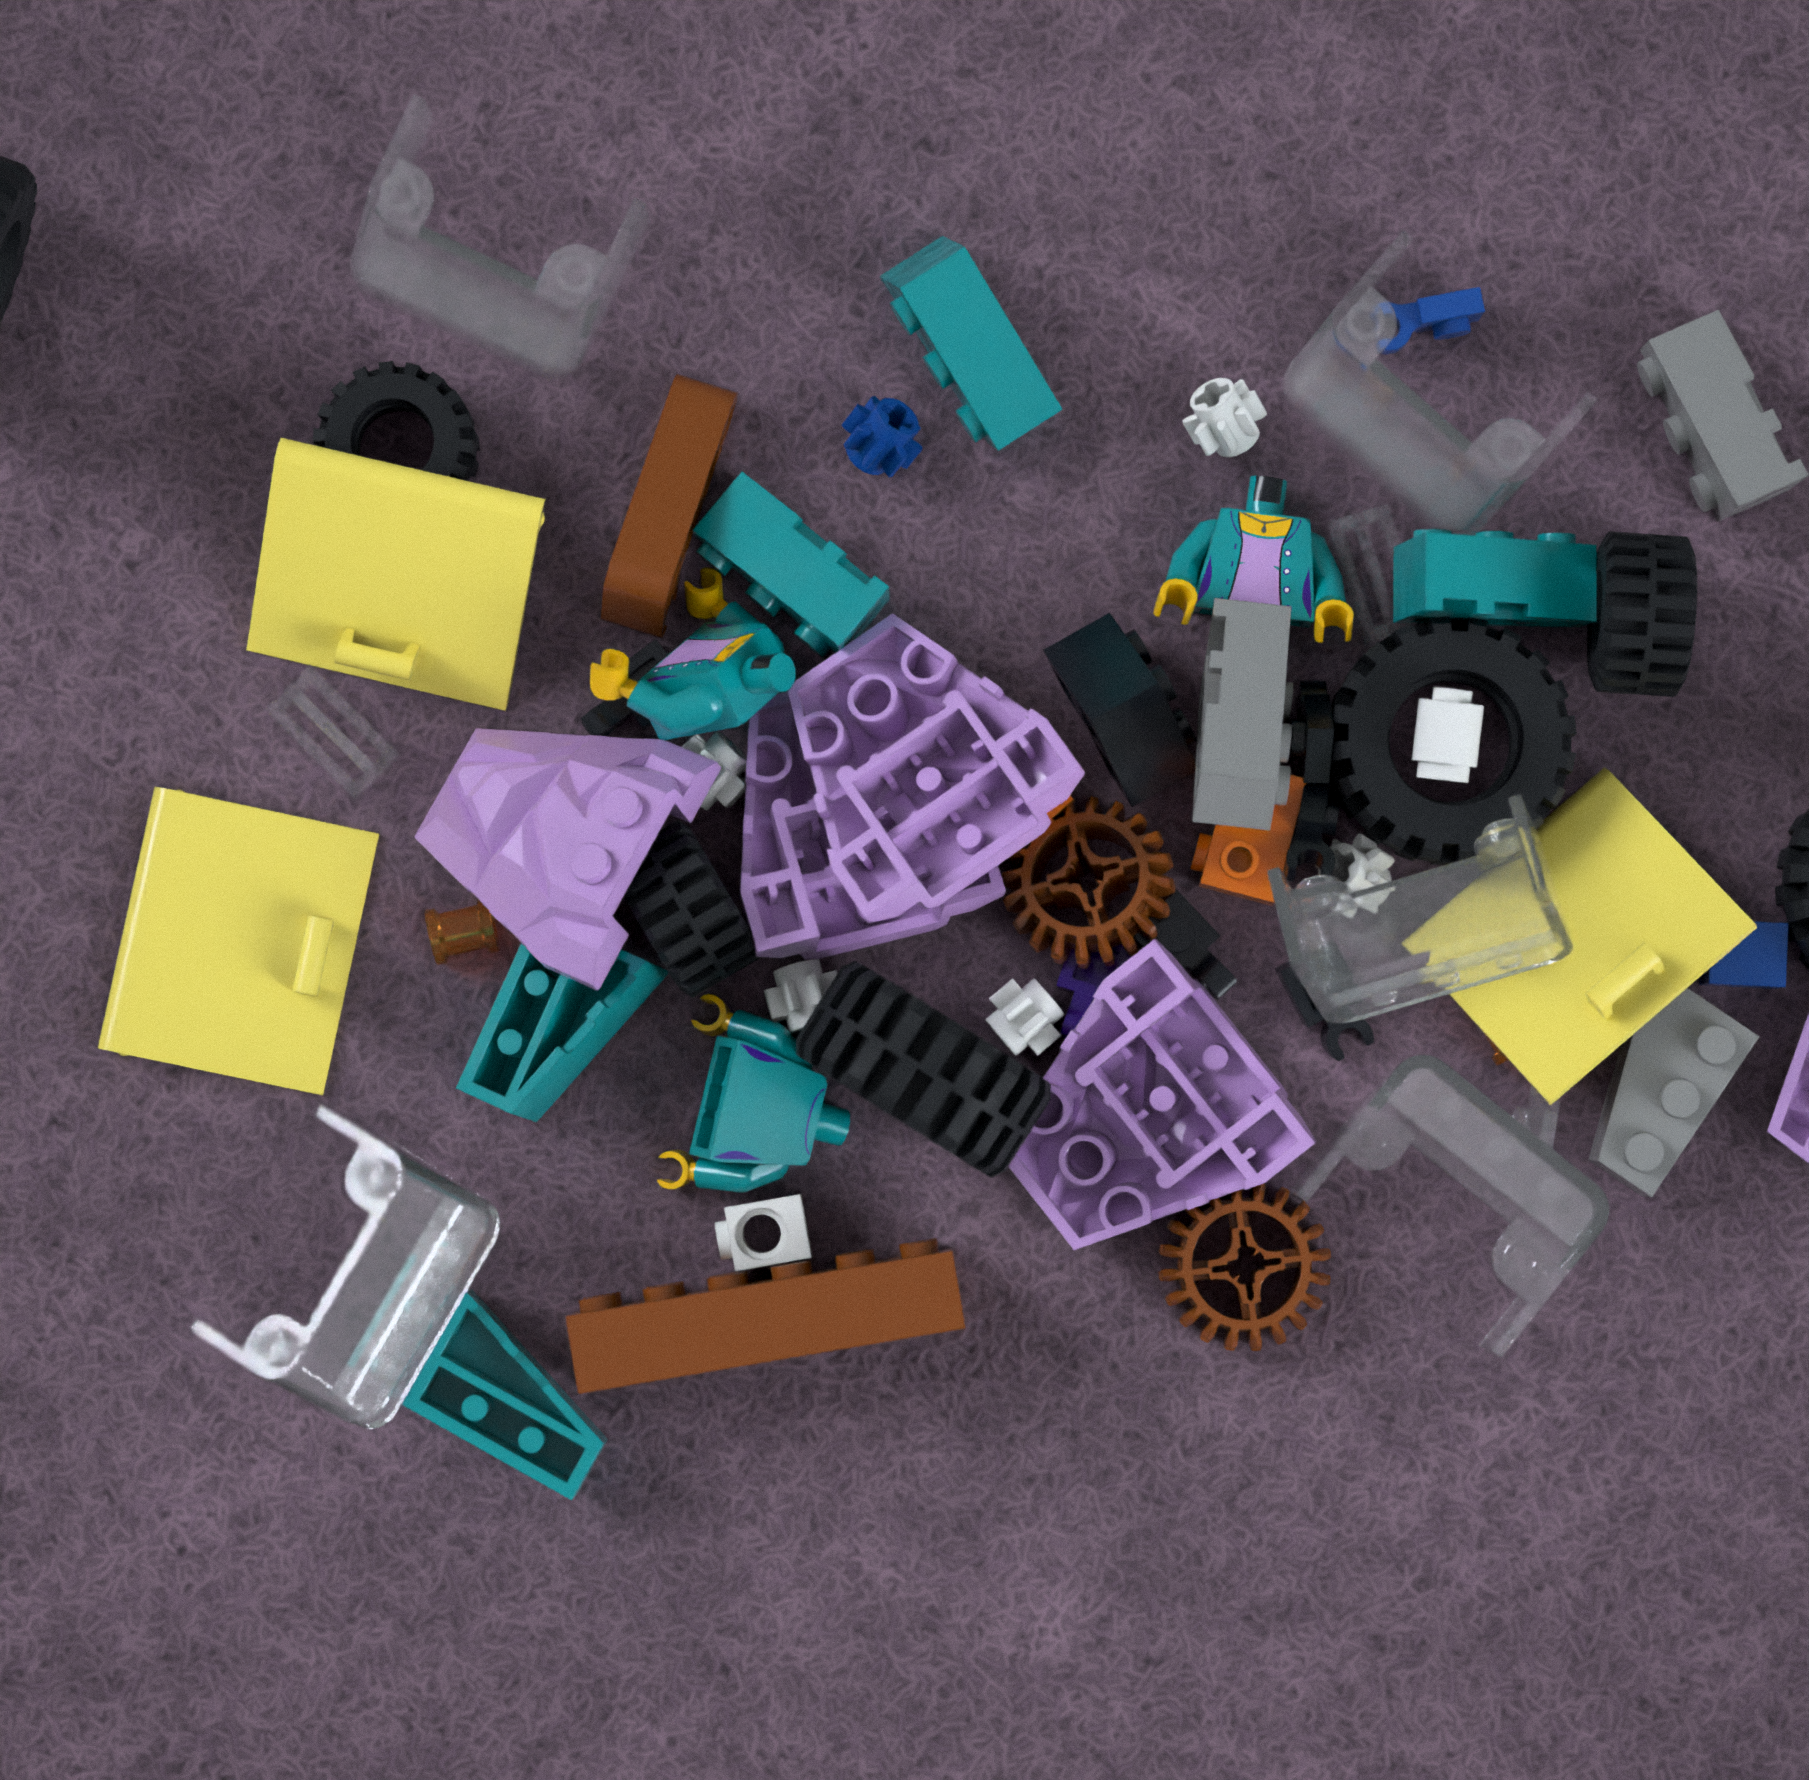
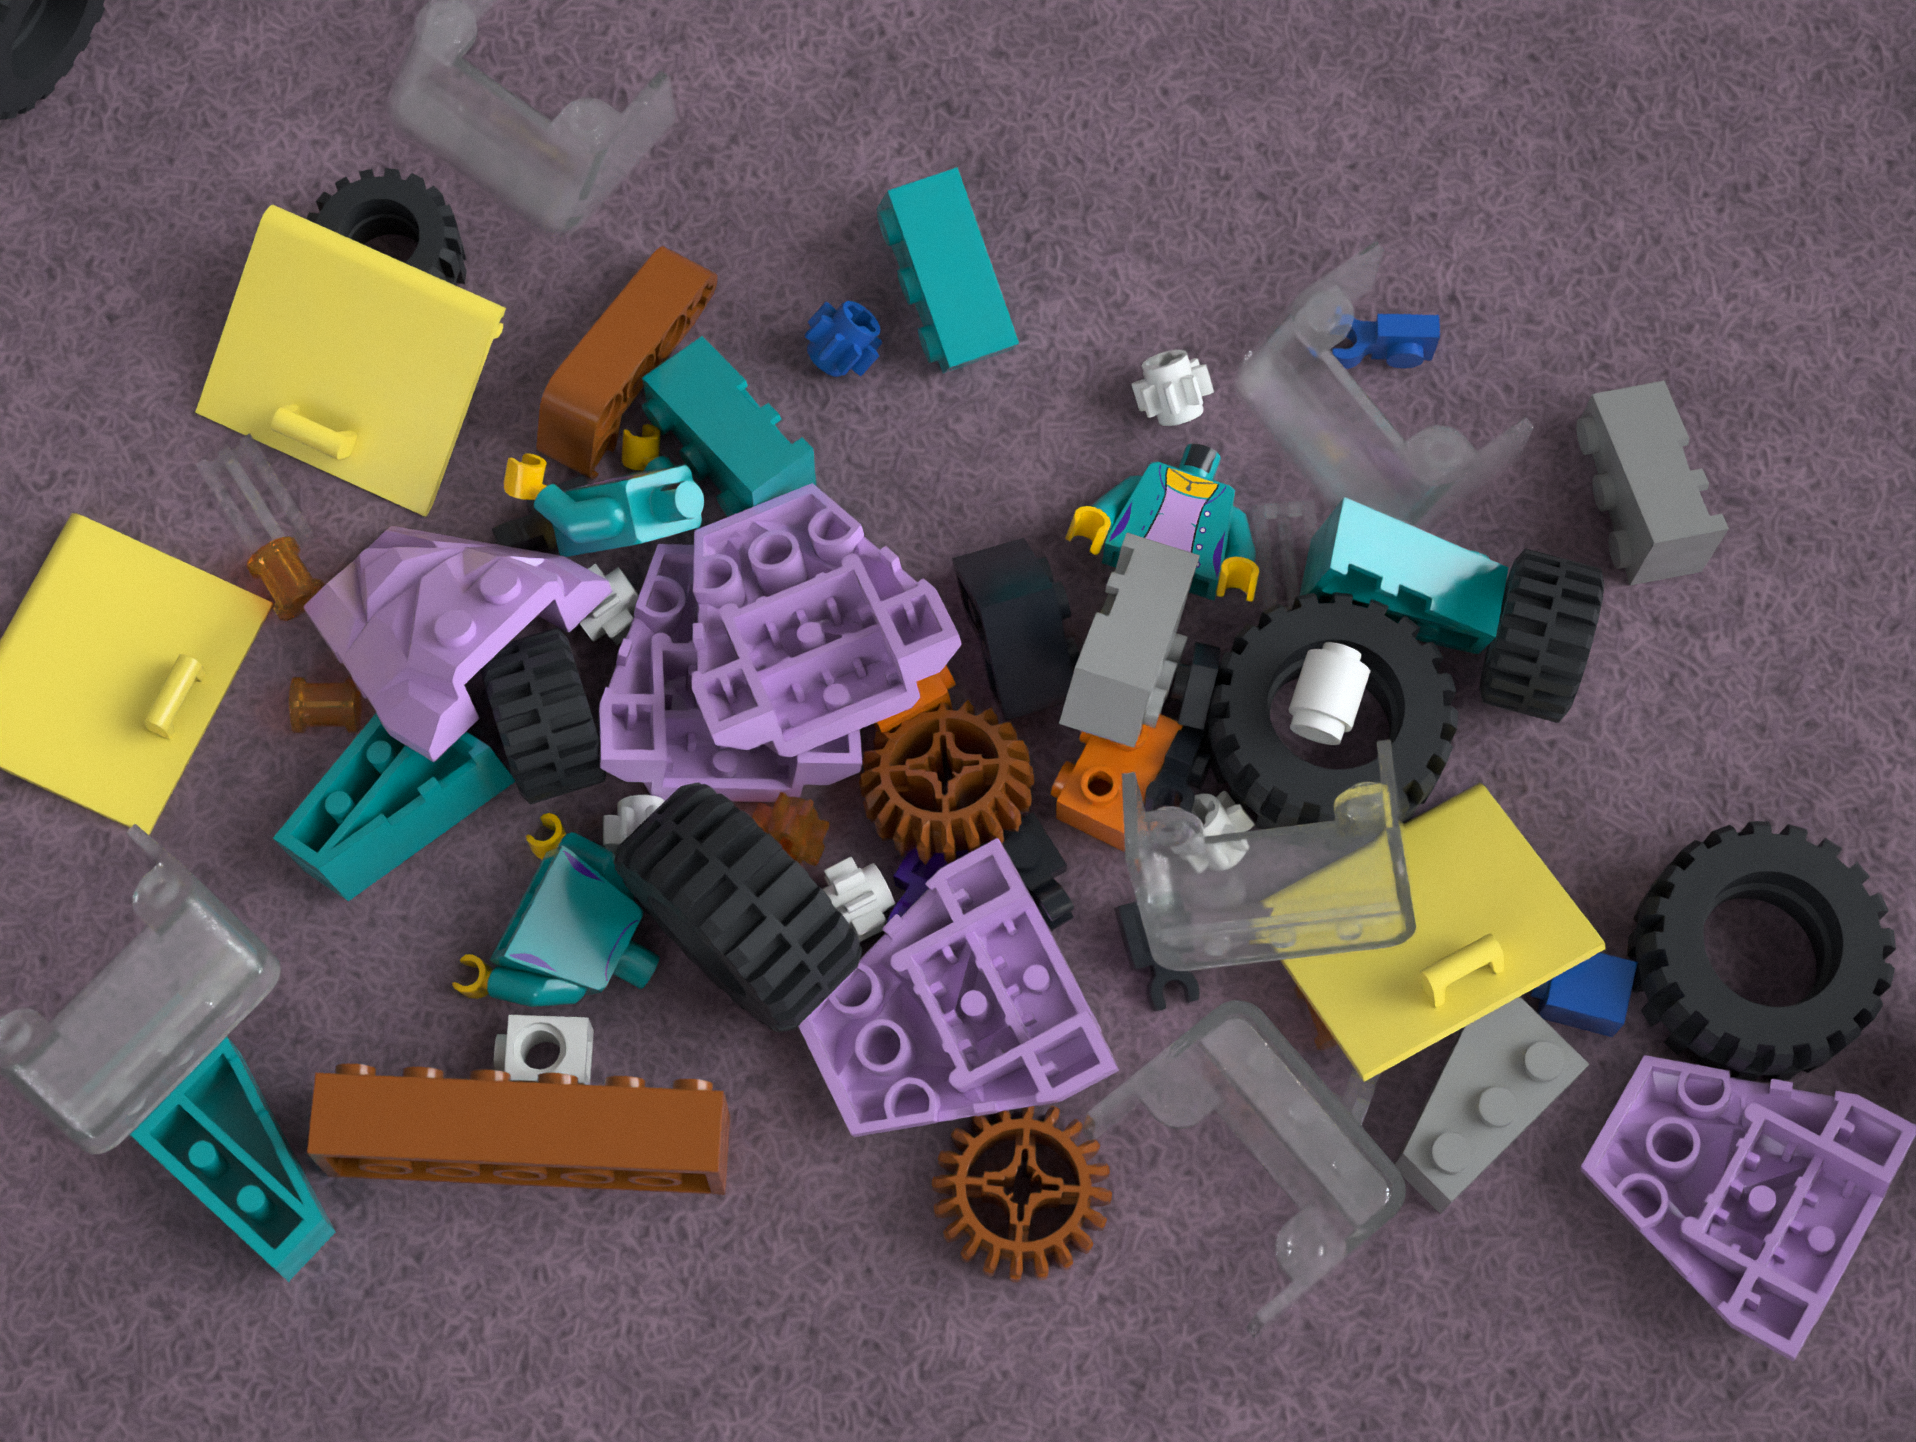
camera: 10 degrees right, 15 degrees down
(388, 809) = (284, 576): none -> clear orange bush
(945, 966) = (794, 826): none -> clear orange gear

